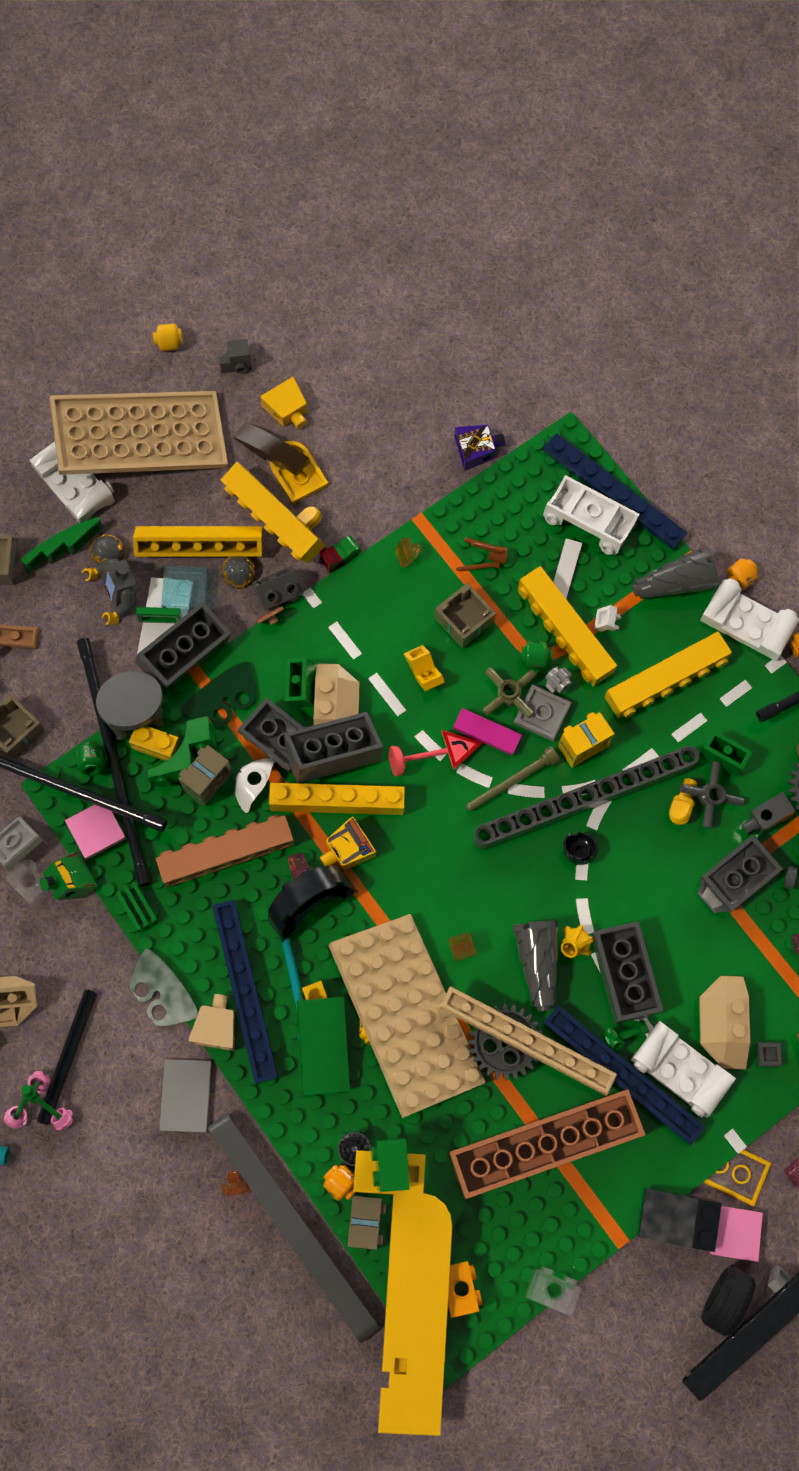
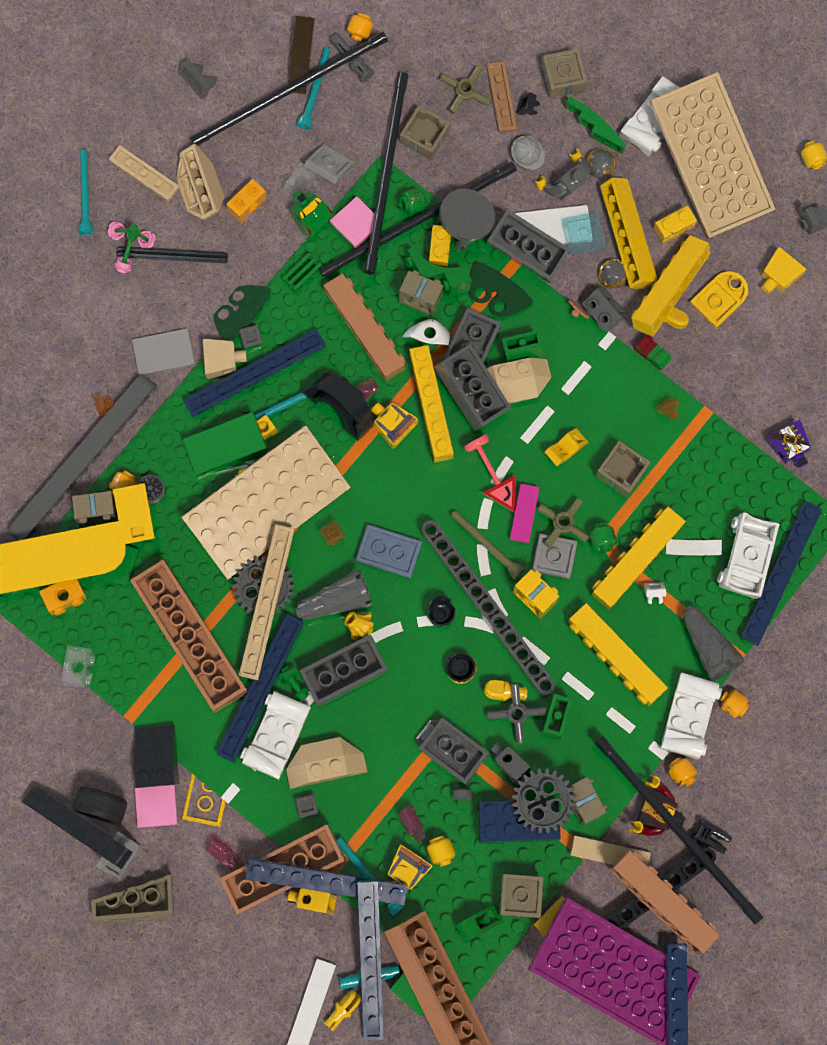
camera: 75 degrees right, 5 degrees up
(13, 608) = (527, 103): none -> black tile
(28, 950) = (246, 201): none -> light orange brick
(70, 624) = (527, 153): none -> light grey piece
(158, 615) = (552, 219): green tile -> none
(198, 985) = (250, 336): none -> dark grey tile
(202, 493) = (674, 224): none -> yellow brick
(271, 448) = (734, 270): dark brown slope -> none
(391, 1165) = (138, 511): green brick -> none
(494, 890) = (388, 551): none -> sand blue tile
(496, 554) = (689, 484): dark orange plant -> none
(558, 680) = (585, 561): light grey gear -> none
(648, 842) = (461, 668): none -> black hair

